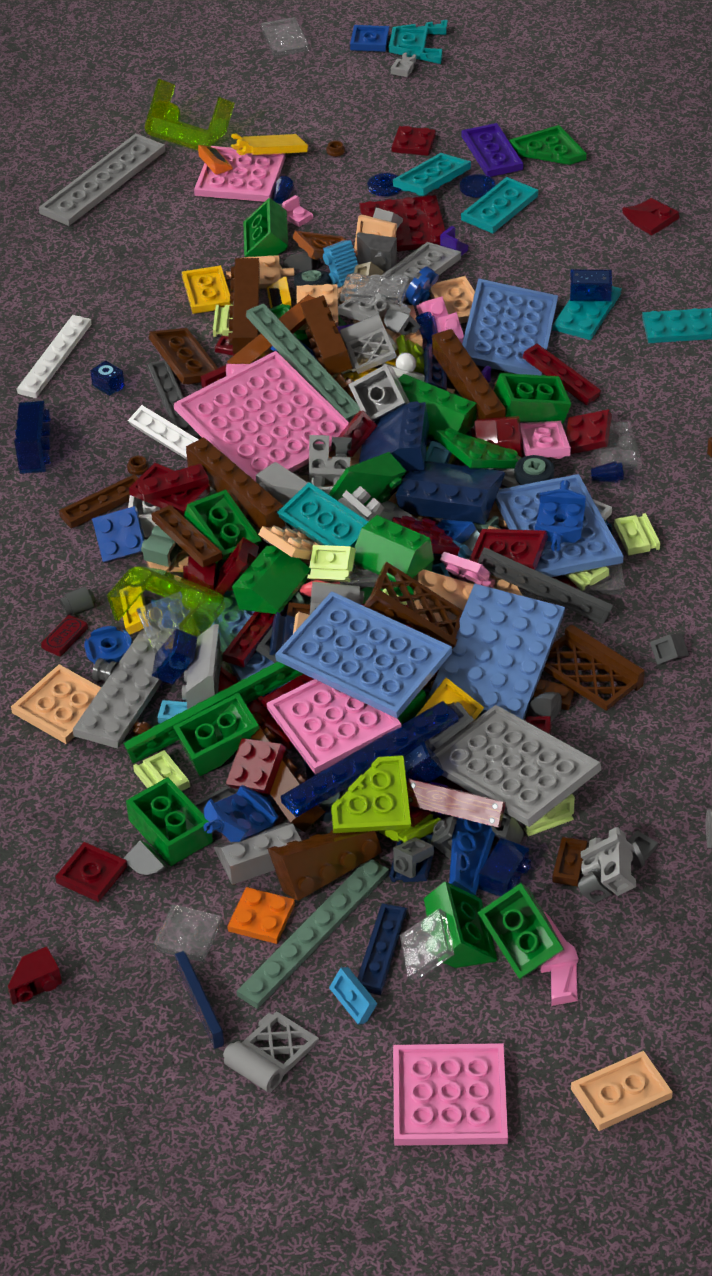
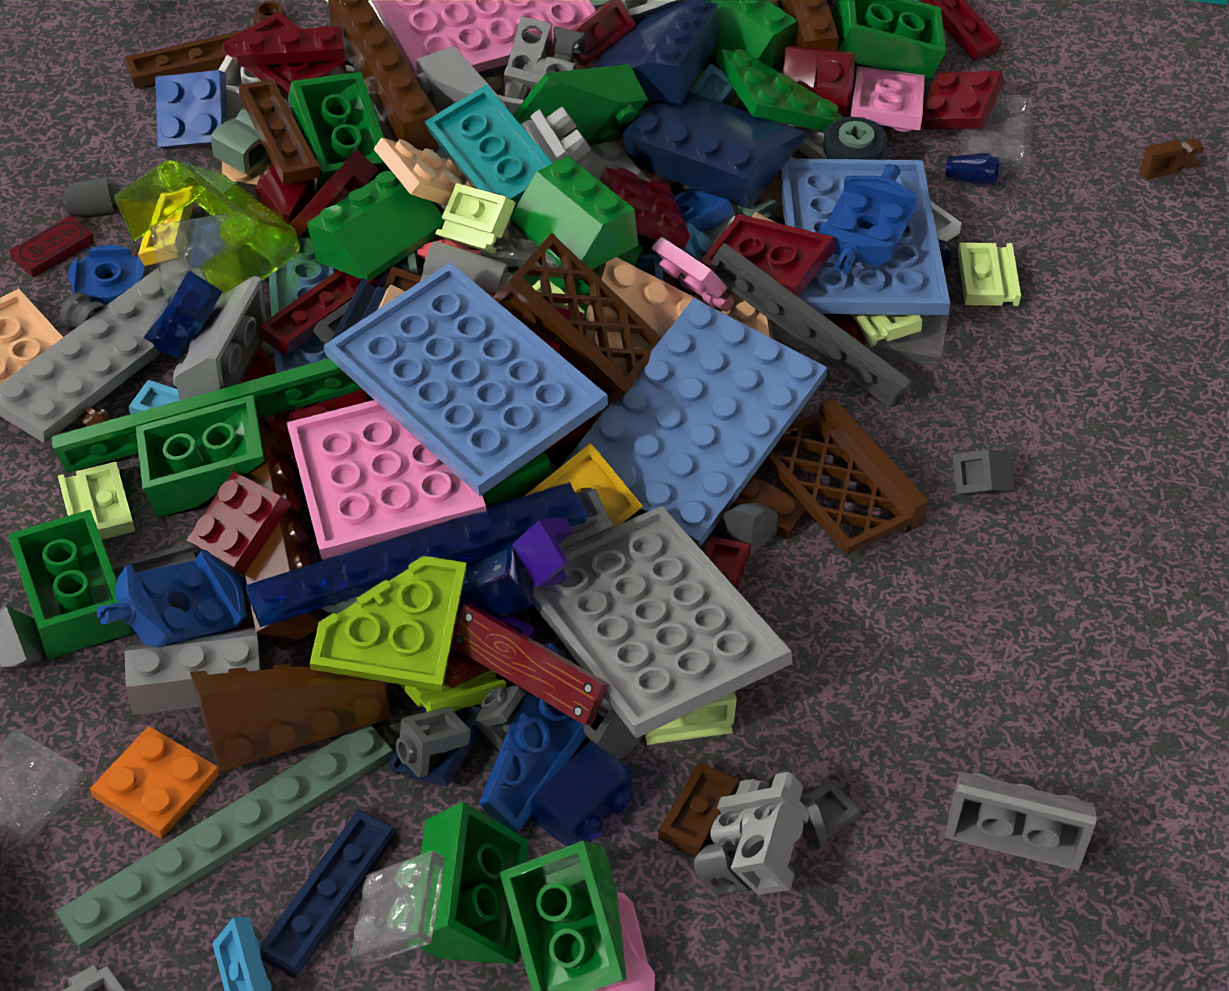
camera: 10 degrees right, 5 degrees up
(442, 740) = (541, 551): none -> dark purple panel

